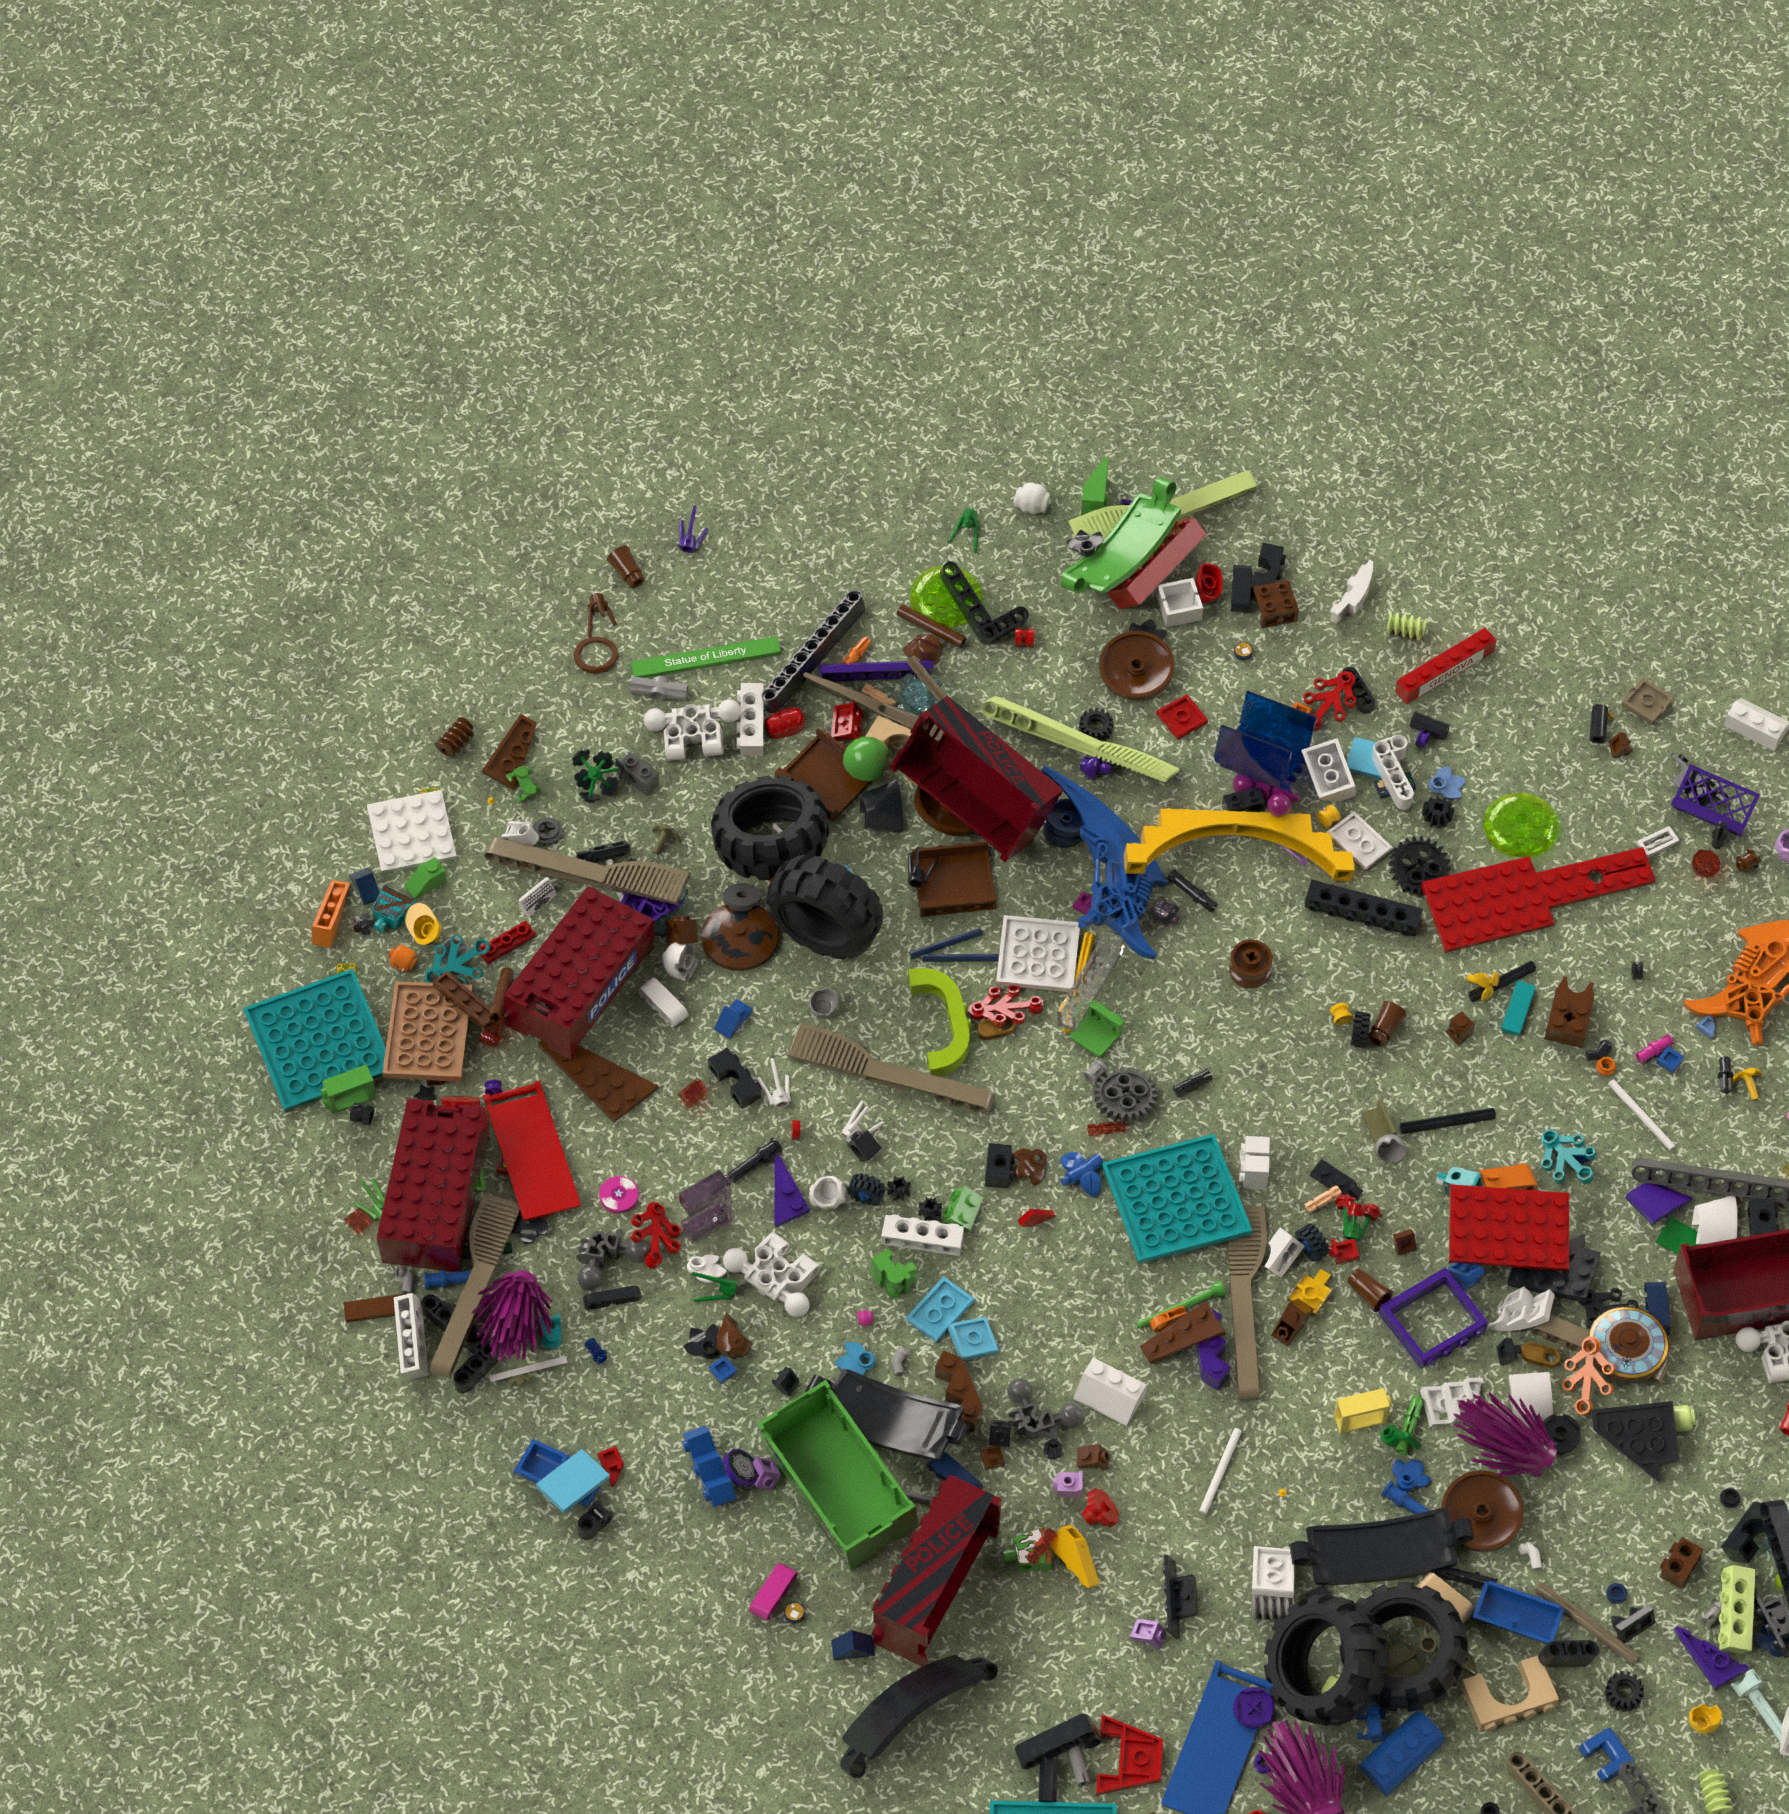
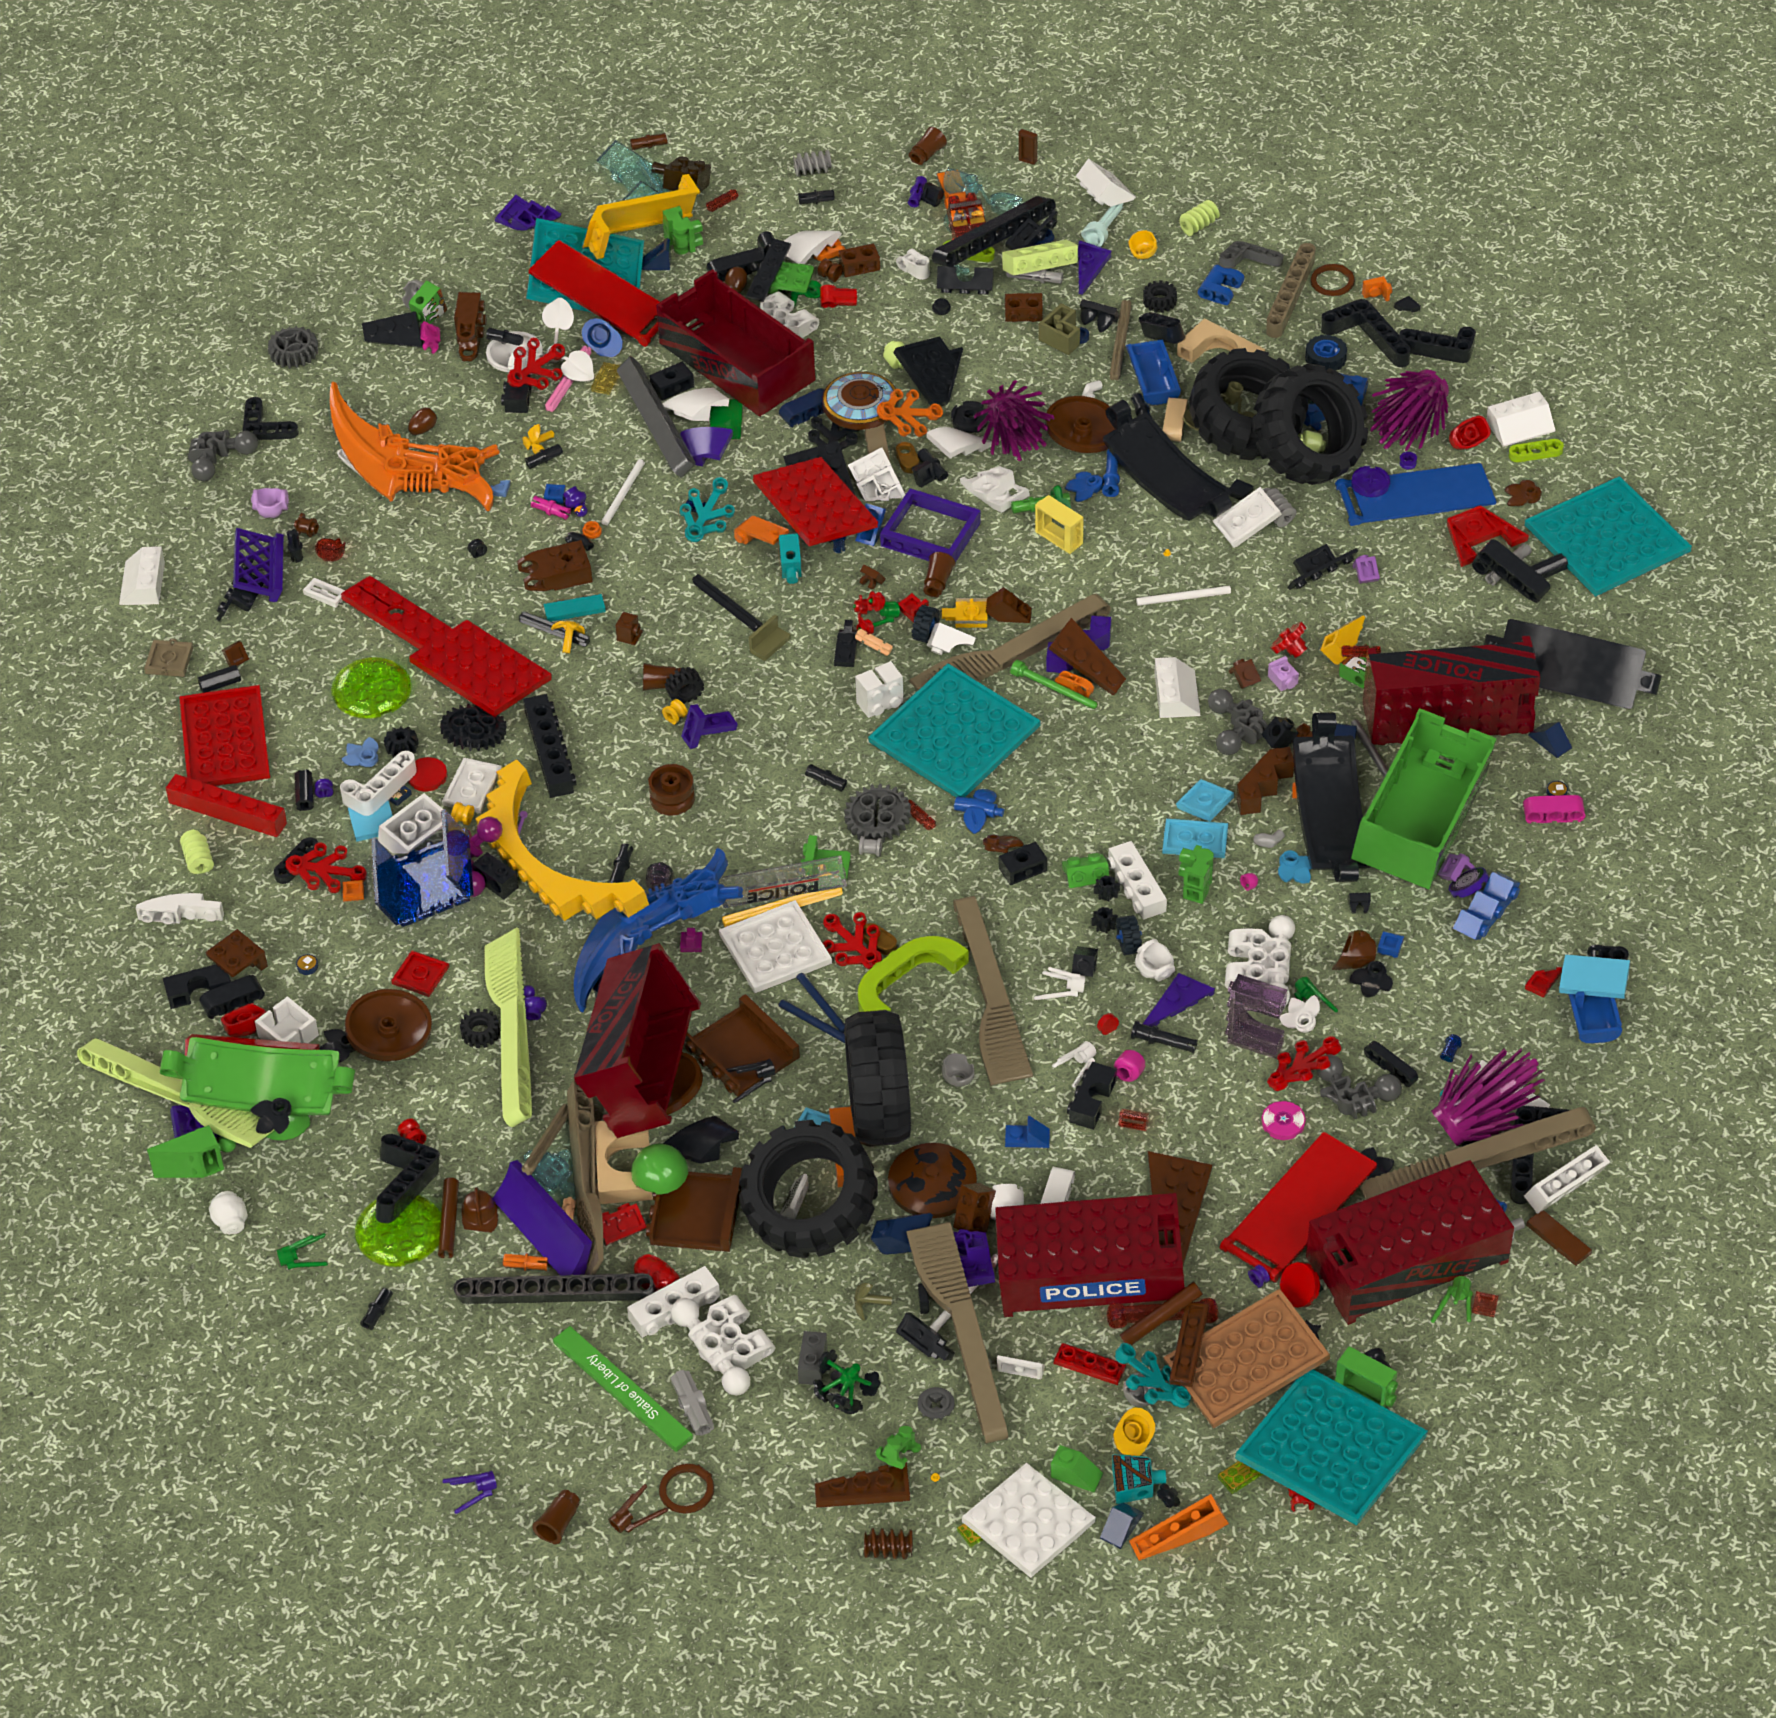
camera: 120 degrees left, 10 degrees down
(402, 958) = (1182, 1433): orange head -> none
(521, 833) = (962, 1419): white piece -> none
(705, 882) = (891, 1235): none -> dark blue slope
(743, 1119) = (1129, 1065): none -> dark pink head
(751, 896) = (901, 1200): dark grey tile -> none
(882, 548) = (376, 1309): none -> black axle
(1034, 1217) = (1054, 812): red tile -> none
(1052, 1443) = (1261, 697): black bush -> none
(1306, 1027) = (700, 724): none -> dark purple bracket
(1390, 1148) = (787, 620): light grey hair -> none
(1392, 819) = (429, 774): none -> red tile
(1450, 1785) = (1326, 351): none -> black wheel
(1515, 1367) = (939, 471): none -> black pin
(1528, 700) = (225, 736): none -> red plate
(1625, 1565) = (1060, 329): none -> olive brick
(1649, 1067) = (576, 500): none -> dark purple animal

